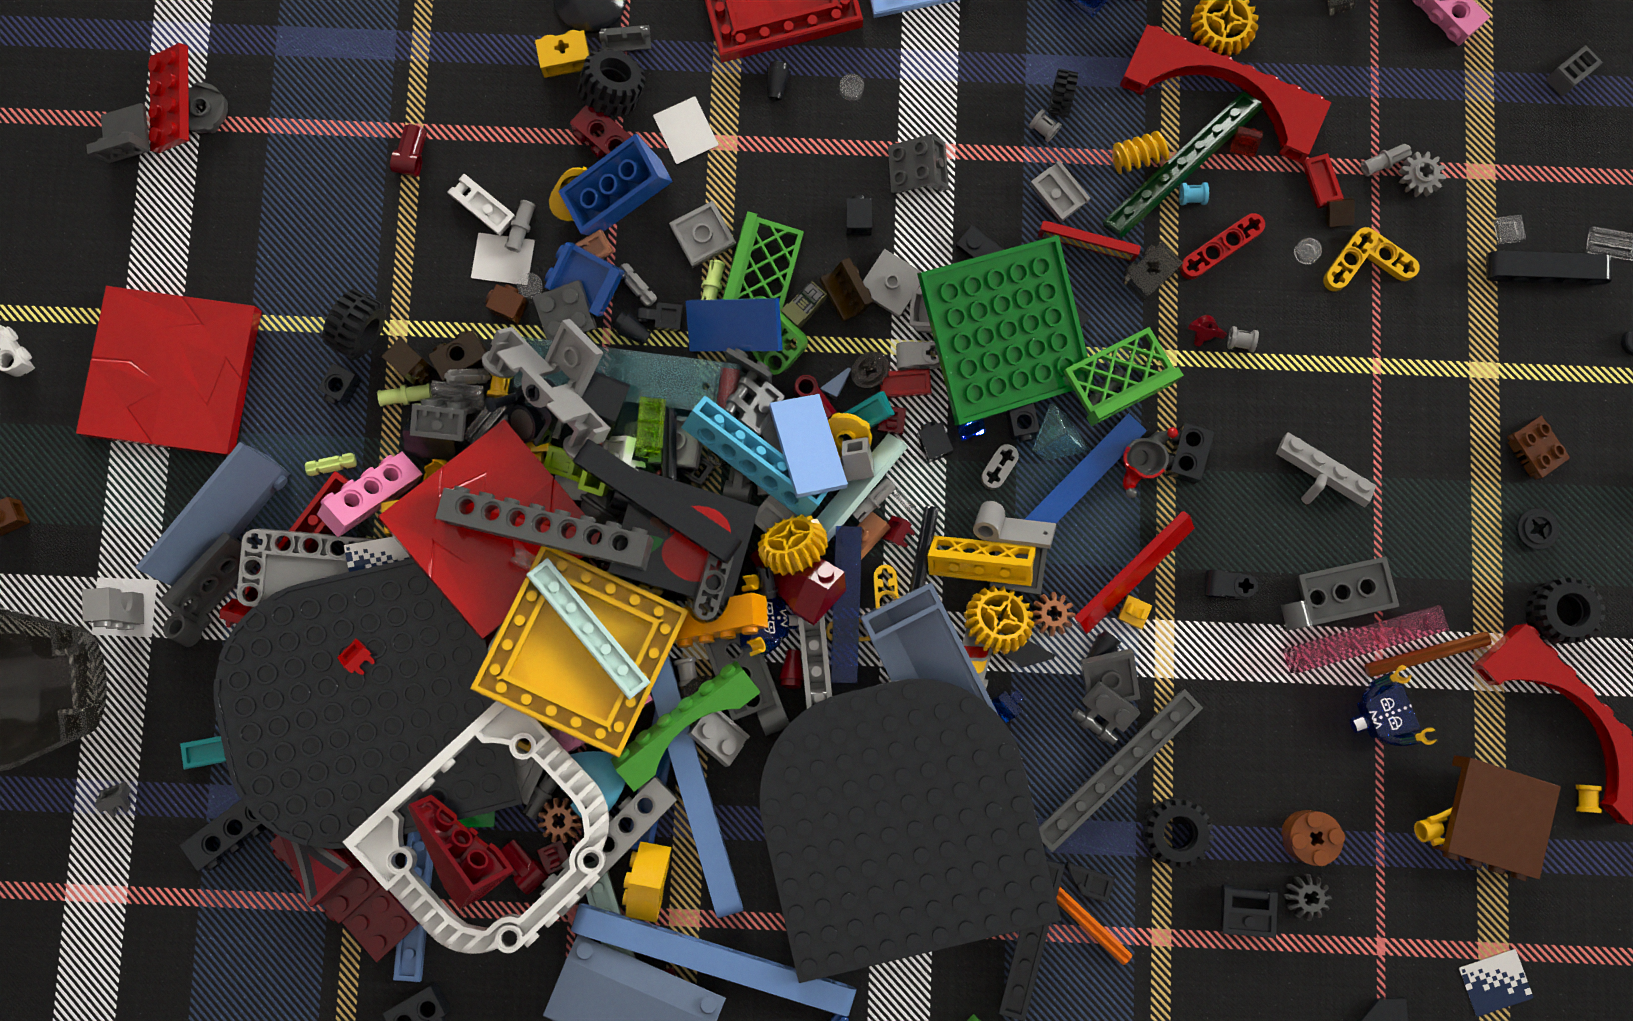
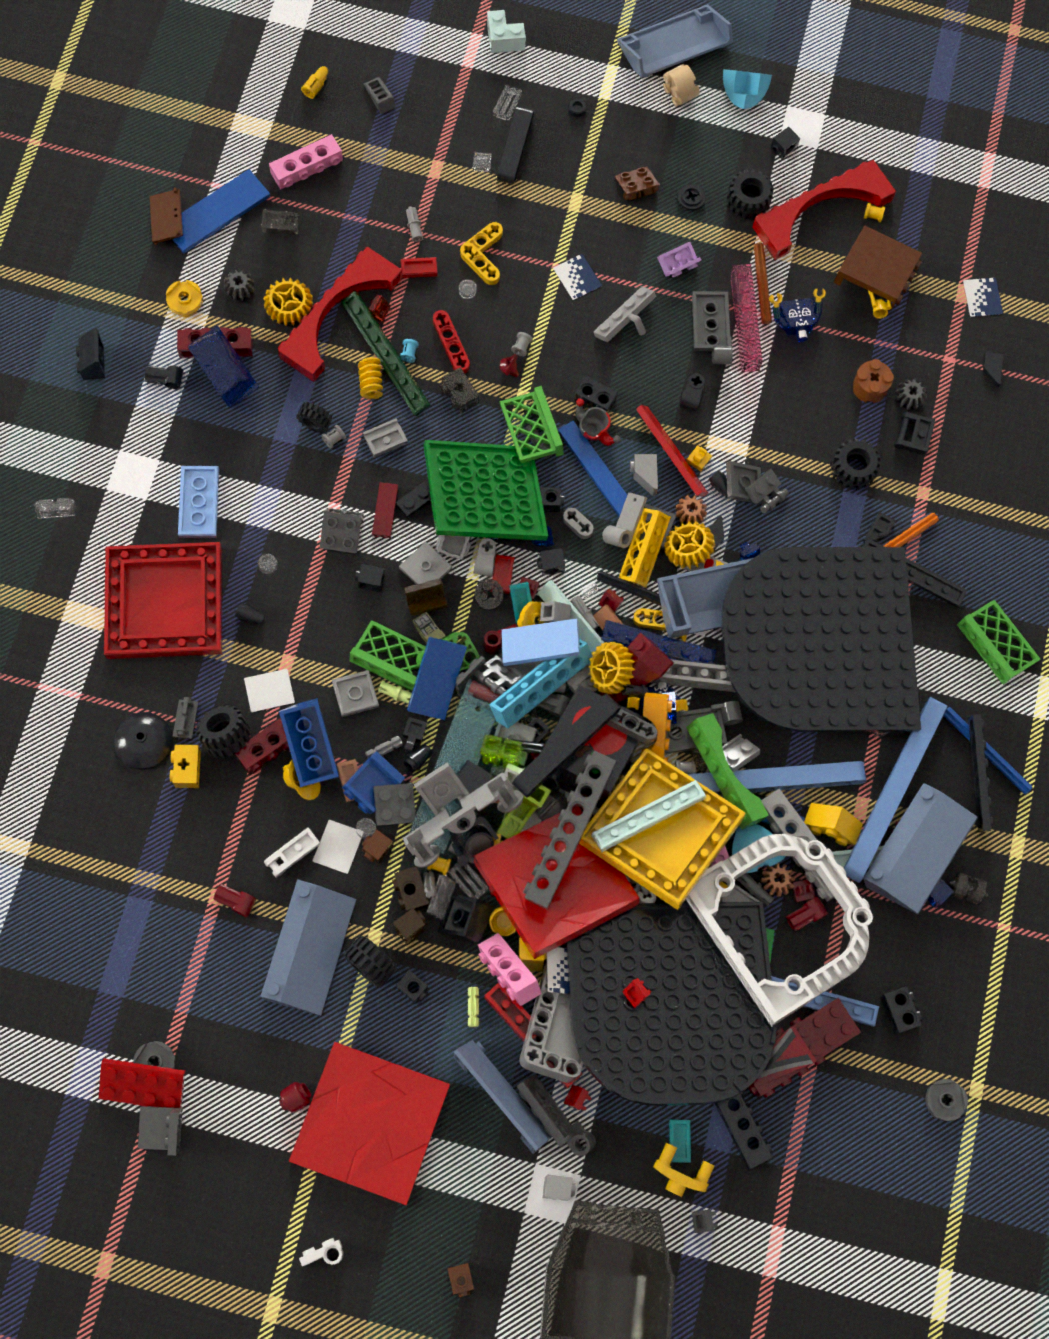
camera: 85 degrees left, 10 degrees down
(158, 760) = (678, 1181): none -> yellow connector
(184, 276) = (295, 1097): none -> dark red head
(366, 250) = (308, 948): none -> sand blue slope
(404, 394) = (431, 938): yellowish green pin -> none
(440, 420) = (462, 904): dark grey bracket -> none
(460, 857) = (803, 934): dark red wedge -> none
(520, 226) = (317, 826): light grey pin -> none
(523, 559) = (585, 857): clear bush -> none
(792, 670) = (698, 694): dark red cone -> none
(835, 386) = (493, 620): sand blue piece -> none
(959, 214) = (385, 510): none -> dark red tile
(1058, 436) = (565, 478): clear light blue slope -> none
(1090, 241) = (427, 426): red tile -> none
(1095, 541) = (645, 471): none -> light grey slope
(1118, 769) = (804, 490): dark grey plate -> none
(1340, 212) = (445, 261): dark brown tile -> none
(1368, 395) = (577, 276): none -> sticker
(1422, 174) = (431, 204): light grey gear -> none
(1431, 528) = (678, 259): none -> lavender bracket

